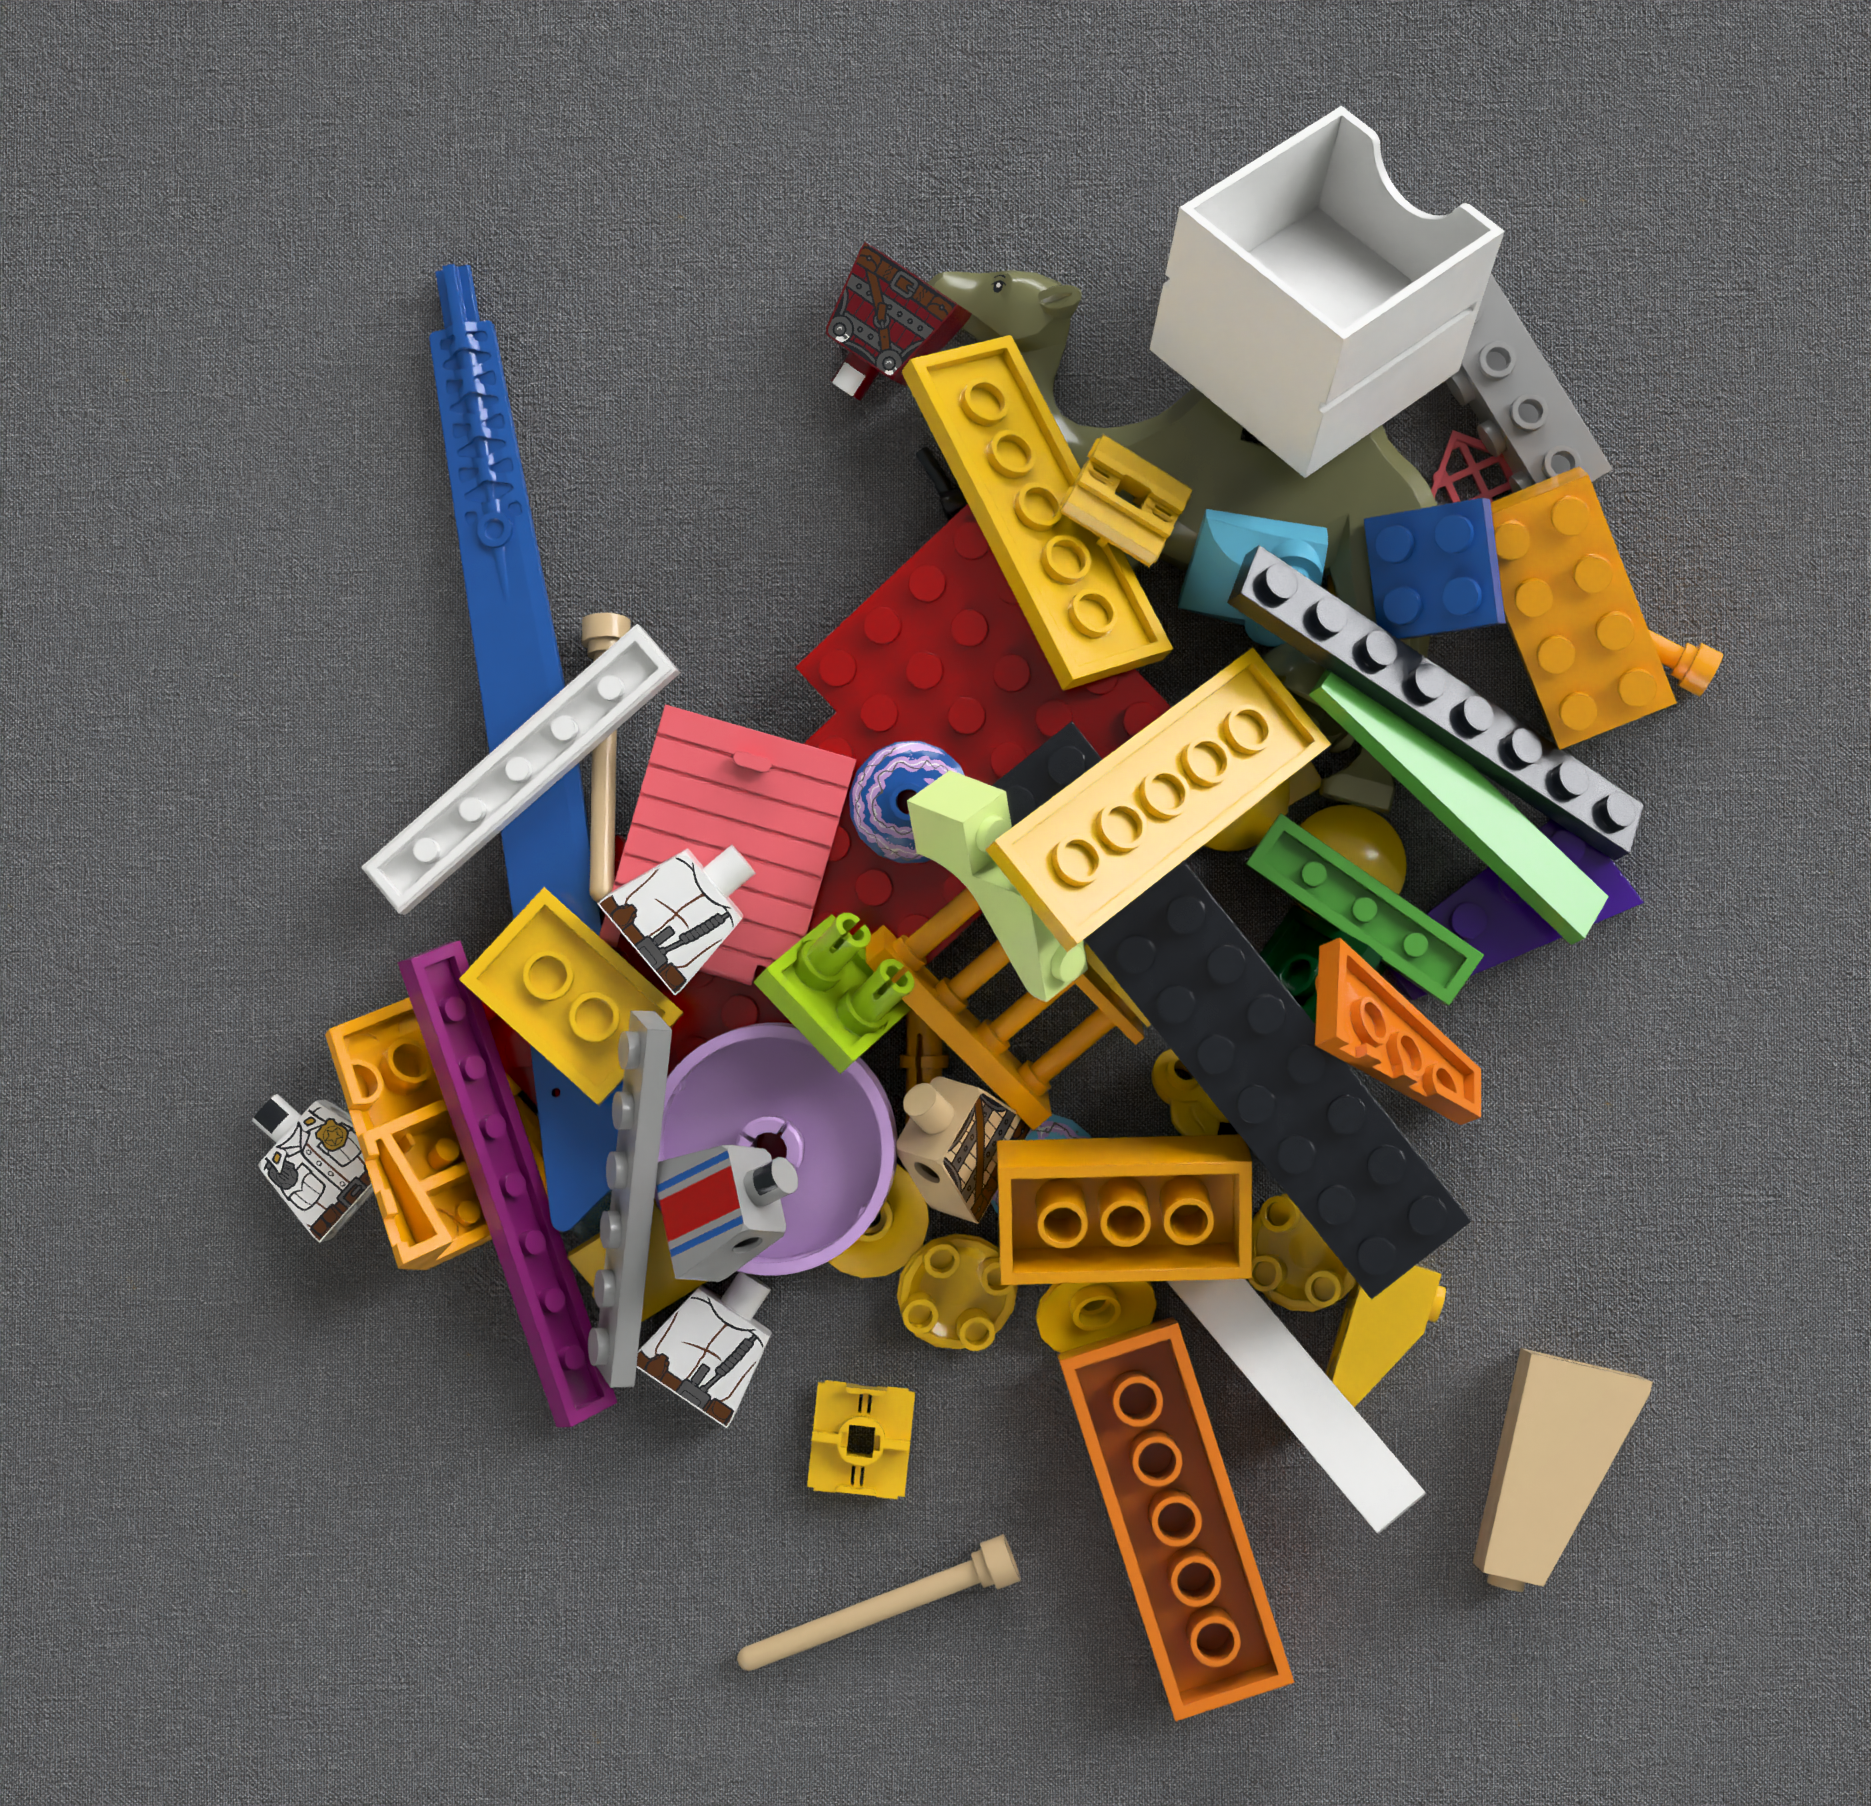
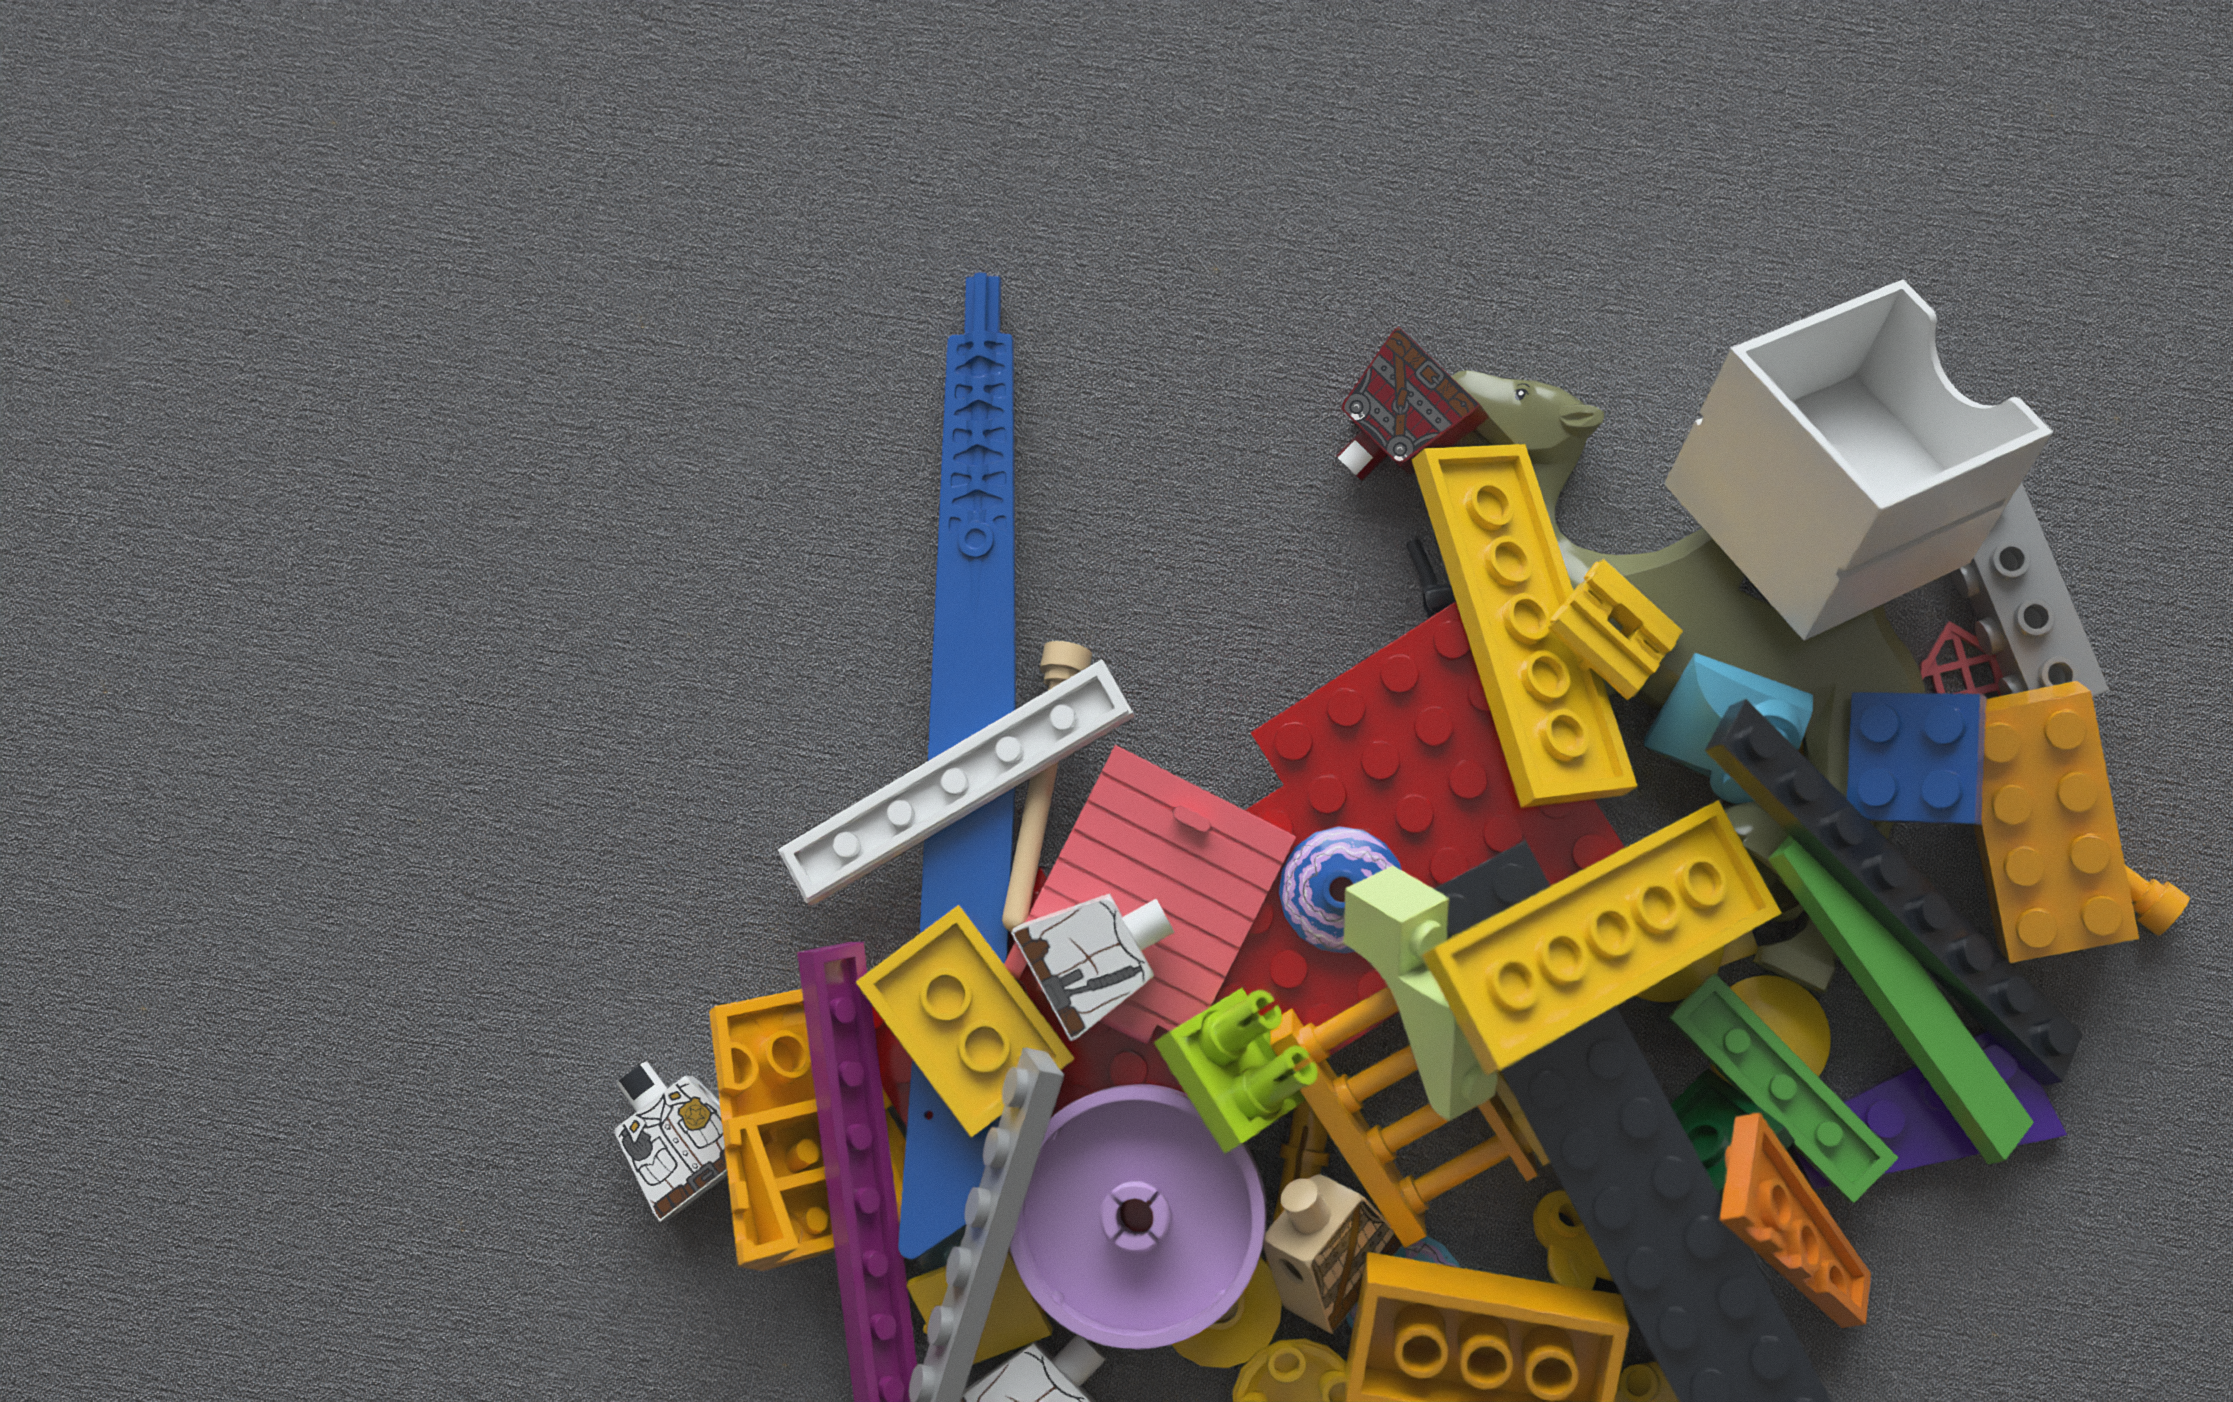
camera: 15 degrees right, 5 degrees down
(722, 1208) = (1078, 1268): light grey torso -> none

